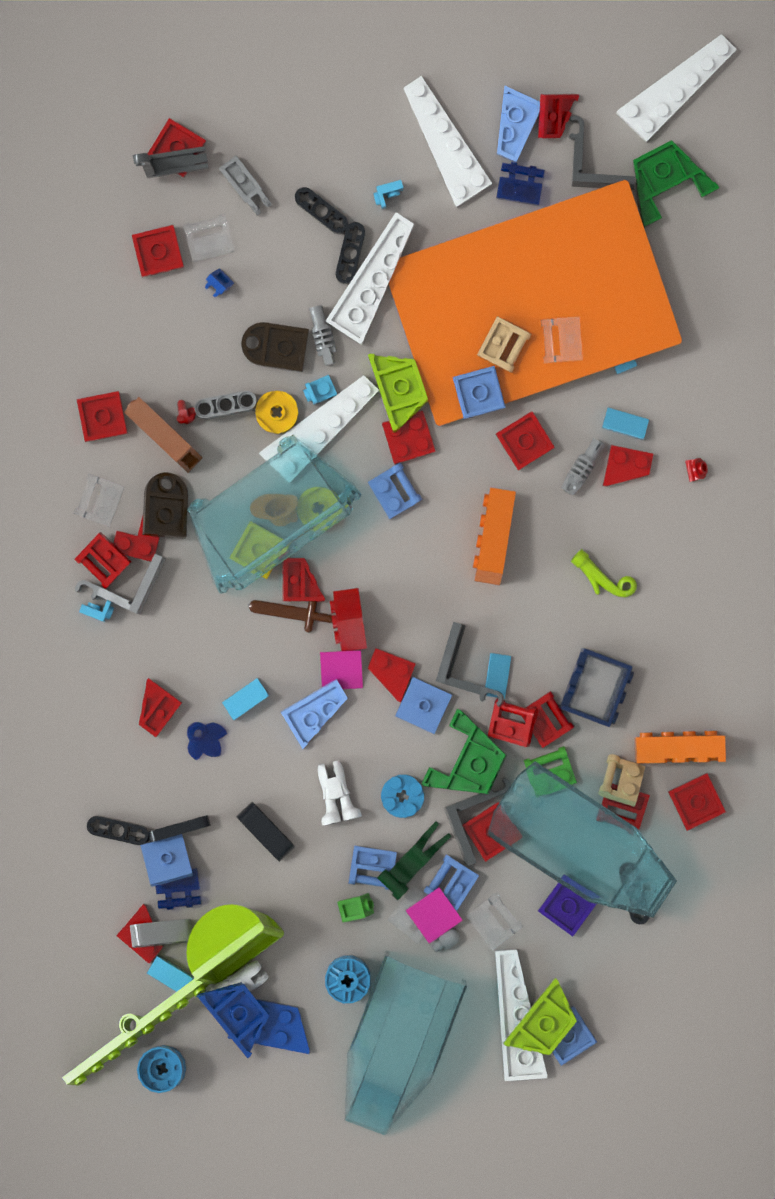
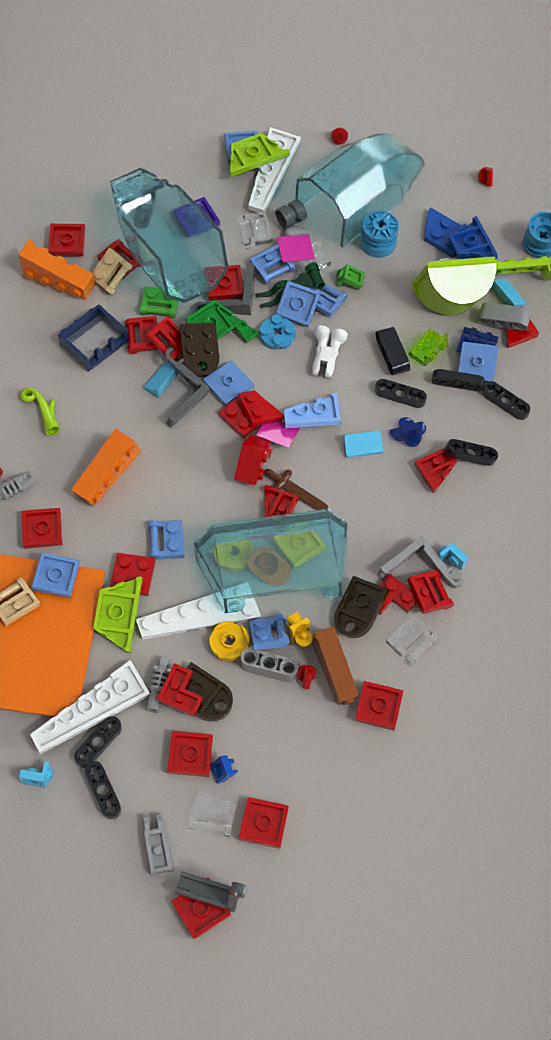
camera: 160 degrees left, 25 degrees down
(145, 742) = (483, 454): none -> black beam
(210, 450) = (299, 630): none -> yellow hips
(217, 779) = (398, 386): none -> black beam
(228, 855) = (428, 346): none -> clear neon green bracket
(247, 432) = (262, 634): none -> medium blue plate
(257, 282) = (190, 754): none -> red plate
(264, 1133) = (485, 176): none -> red plate
(298, 327) = (175, 693): none -> red plate
(320, 390) = (184, 642): medium azure bracket -> none
(374, 685) = (257, 409): none -> red wing
(395, 839) = (298, 303): none -> medium blue plate
(461, 1109) = (339, 135): none -> red plate
(463, 958) = (290, 214): none -> dark grey wheel
(473, 728) = (199, 346): none -> dark brown plate

